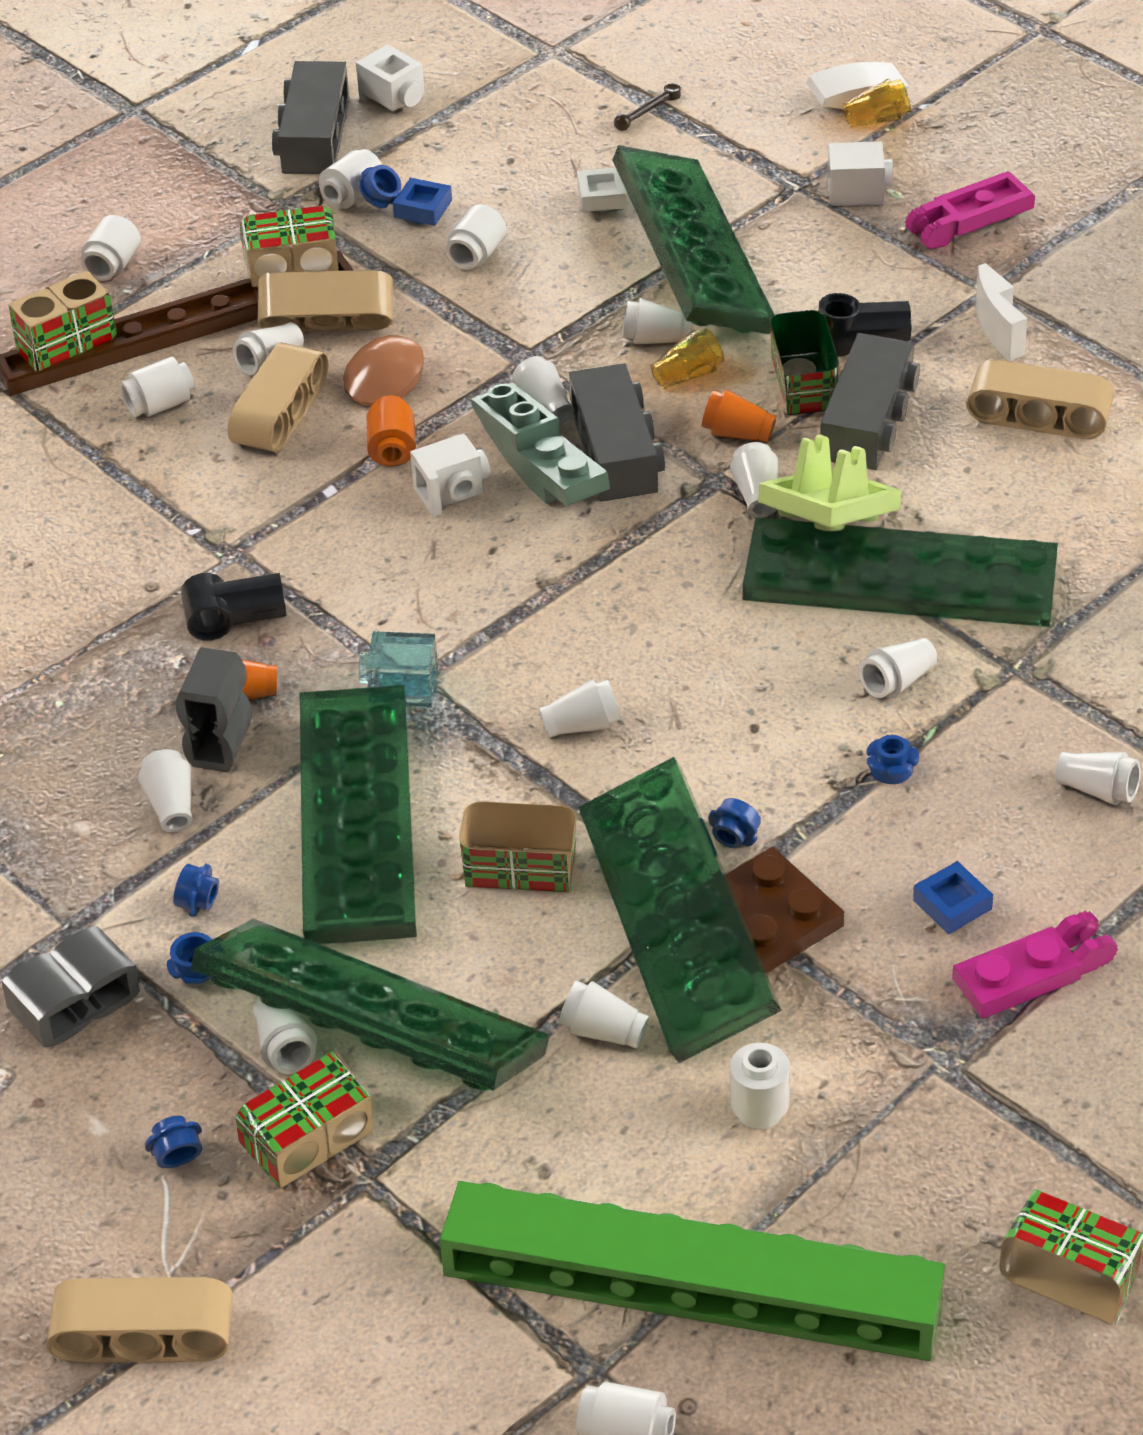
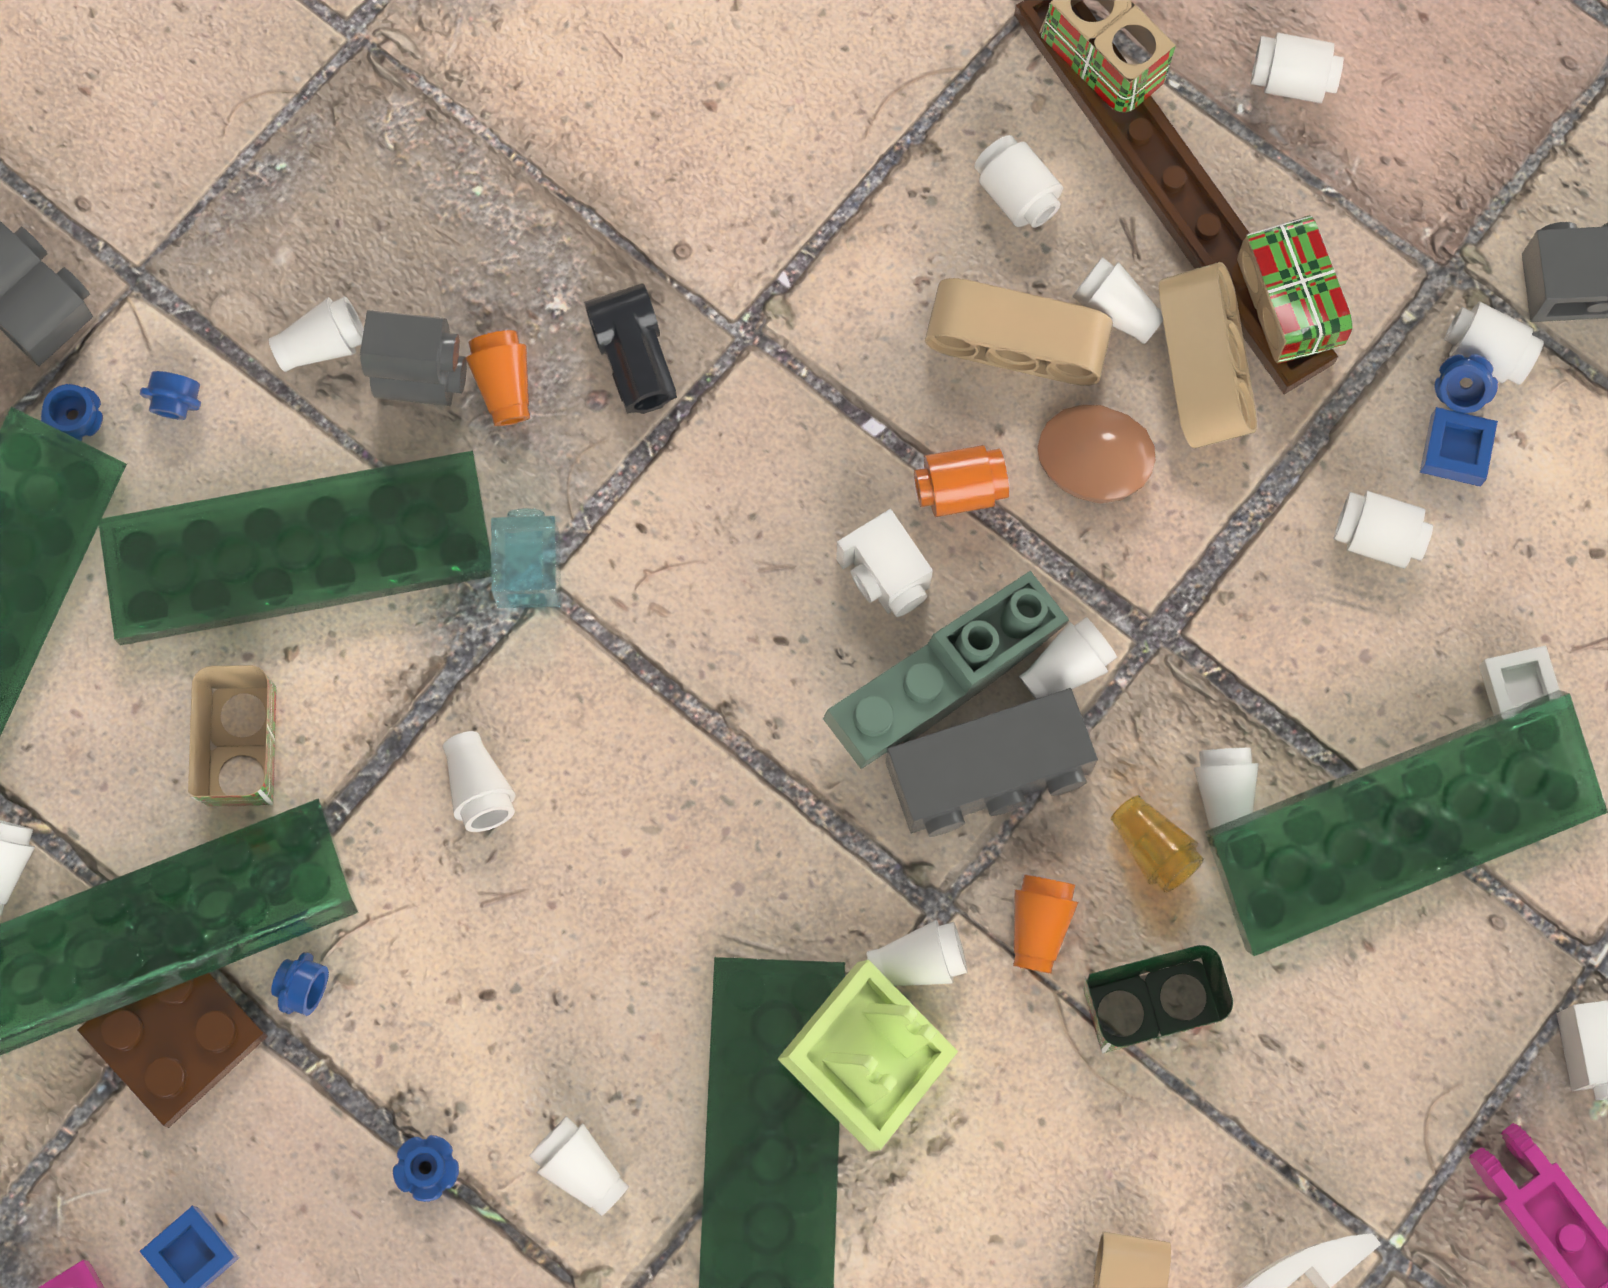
camera: 80 degrees right, 30 degrees up
(849, 317) = (1258, 1086): black piece -> none
(870, 397) = (1090, 1097): dark grey brick -> none

